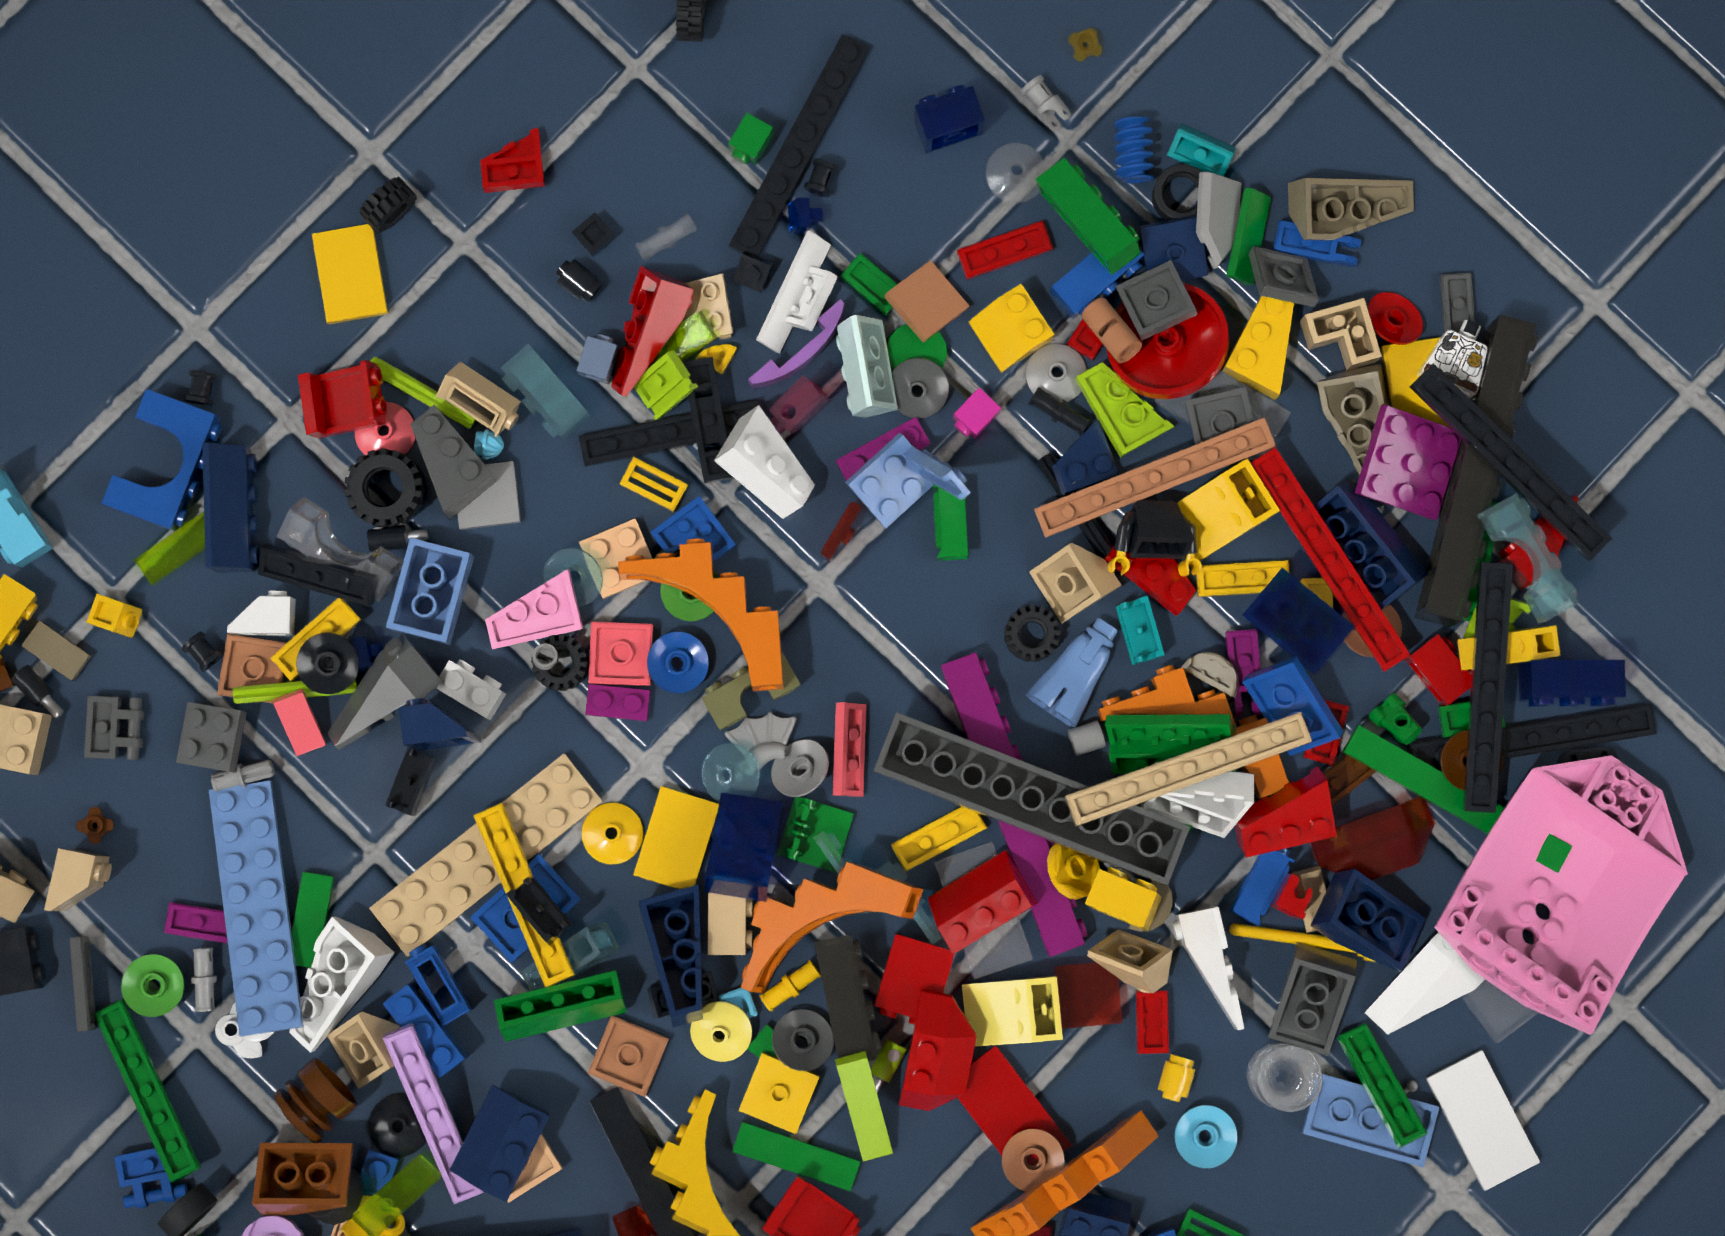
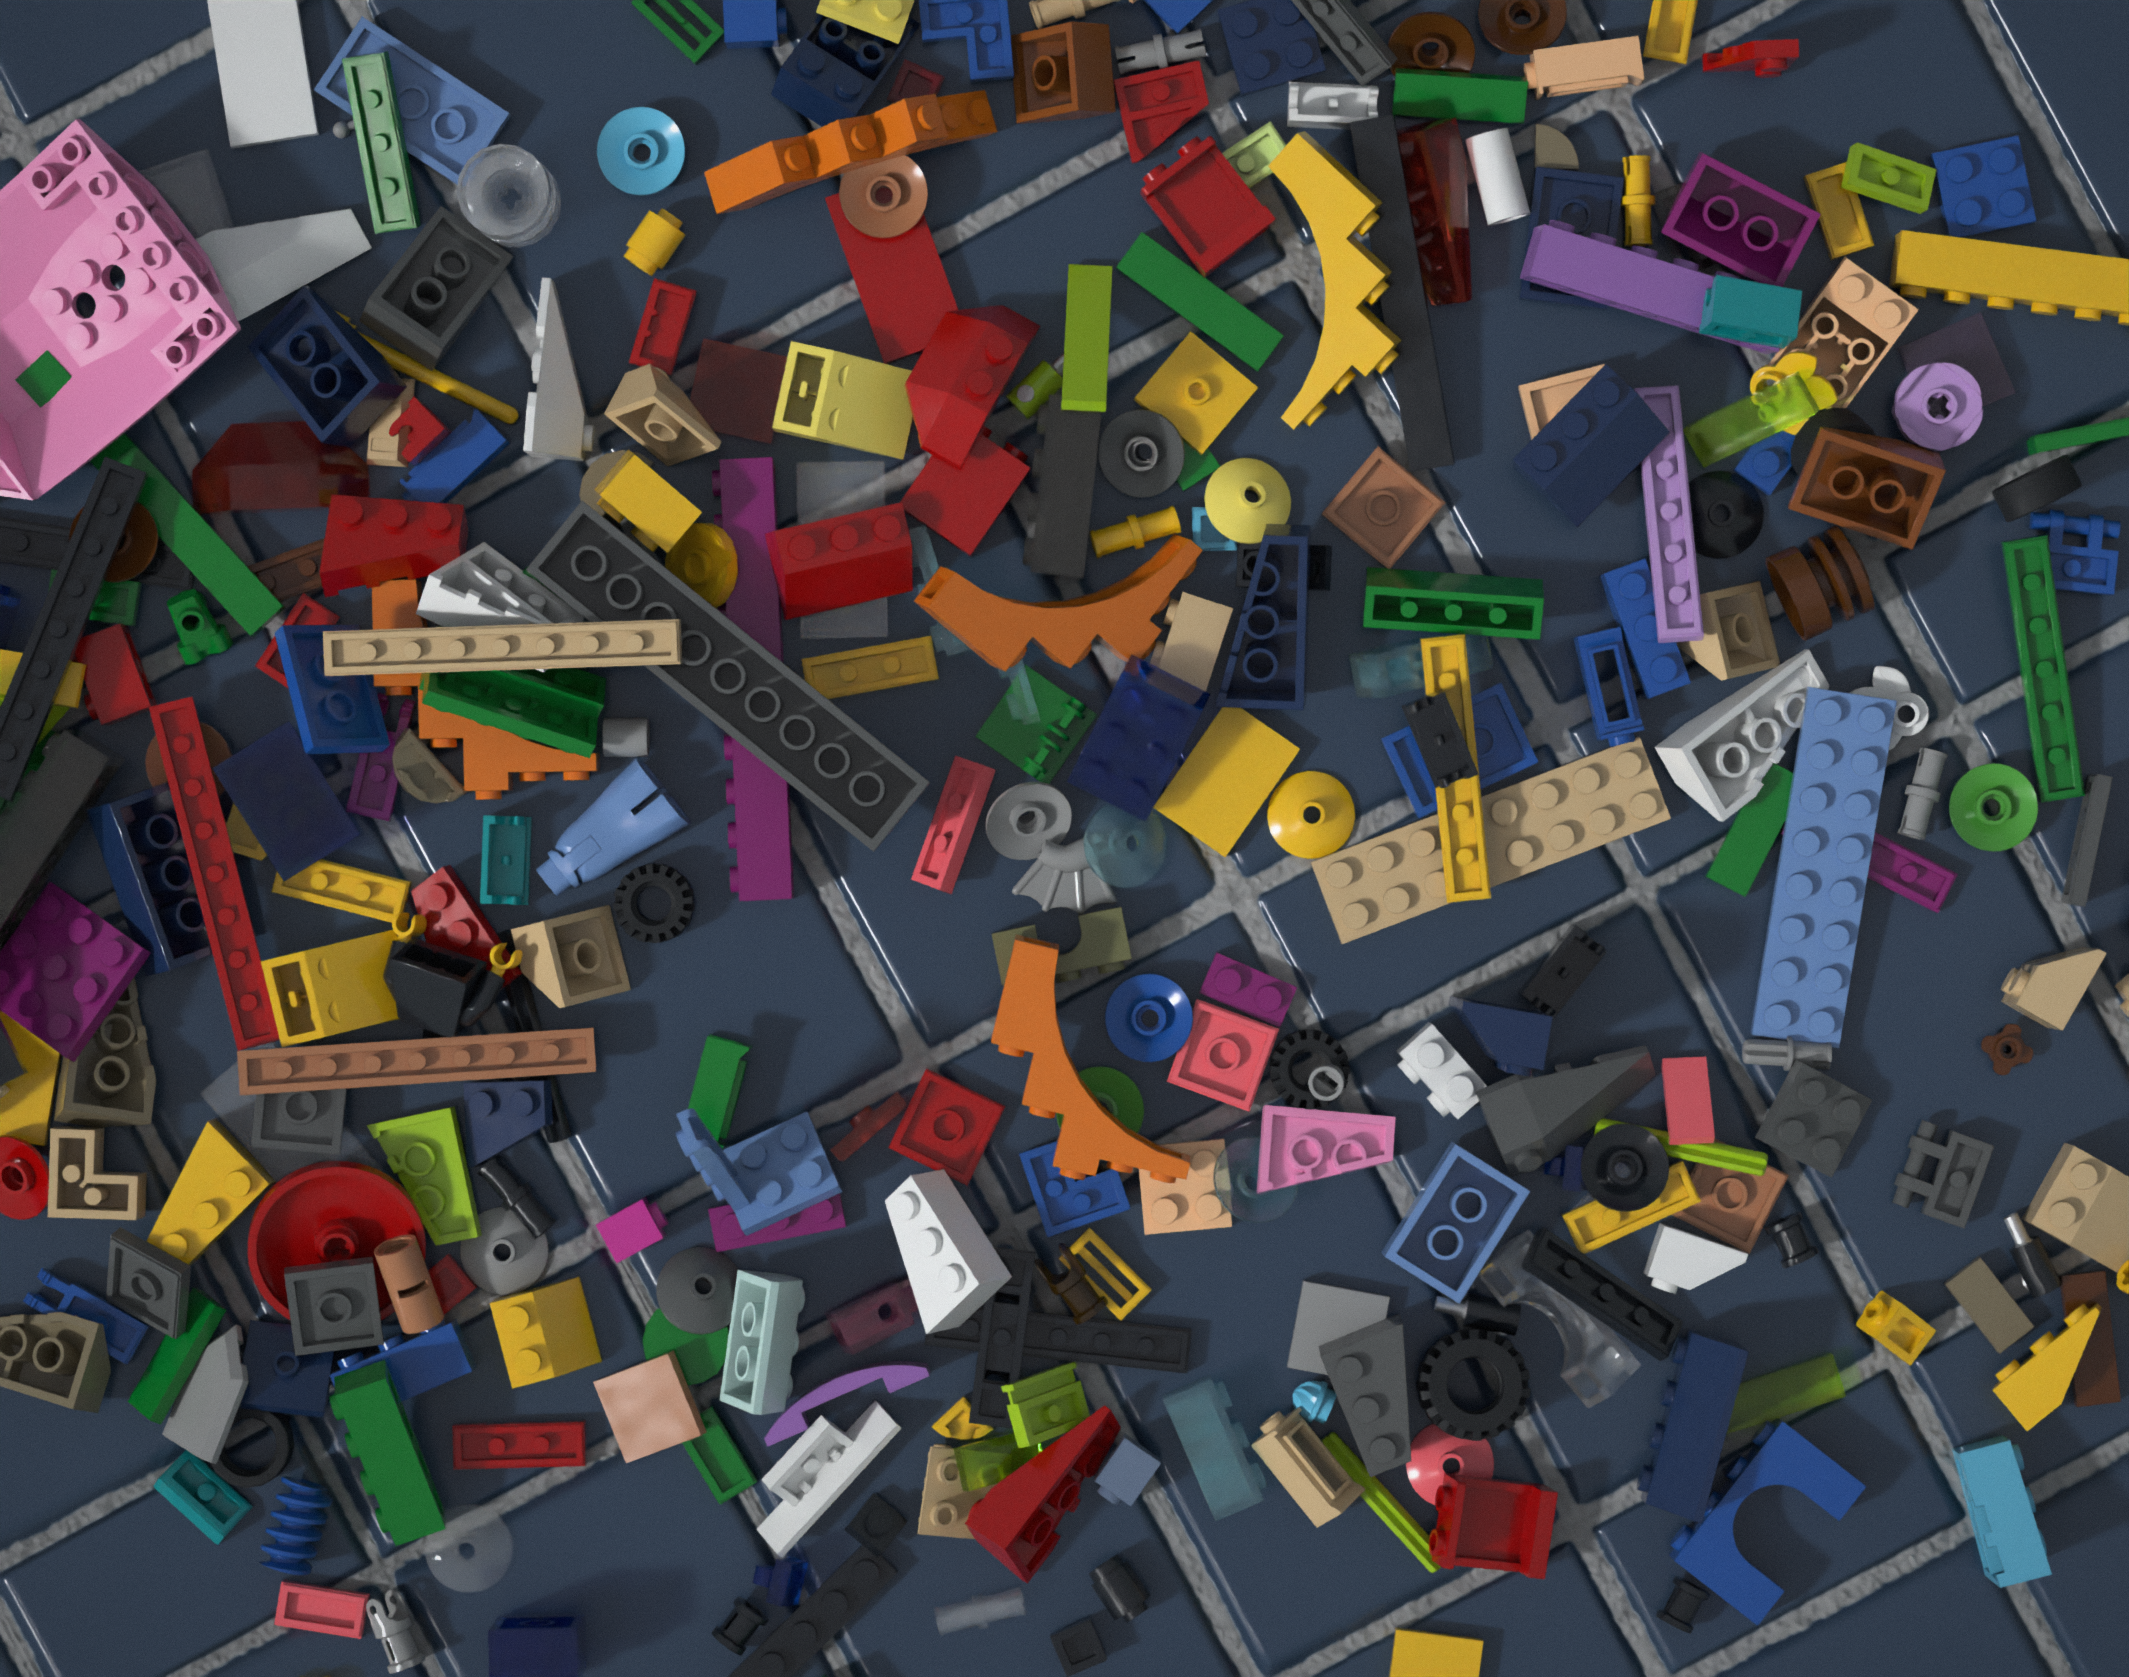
camera: 160 degrees left, 5 degrees up
(671, 467) = (1073, 1287): none -> dark brown piece
(789, 548) = (947, 1126): none -> red tile
(1099, 103) = (321, 1609): none -> coral tile

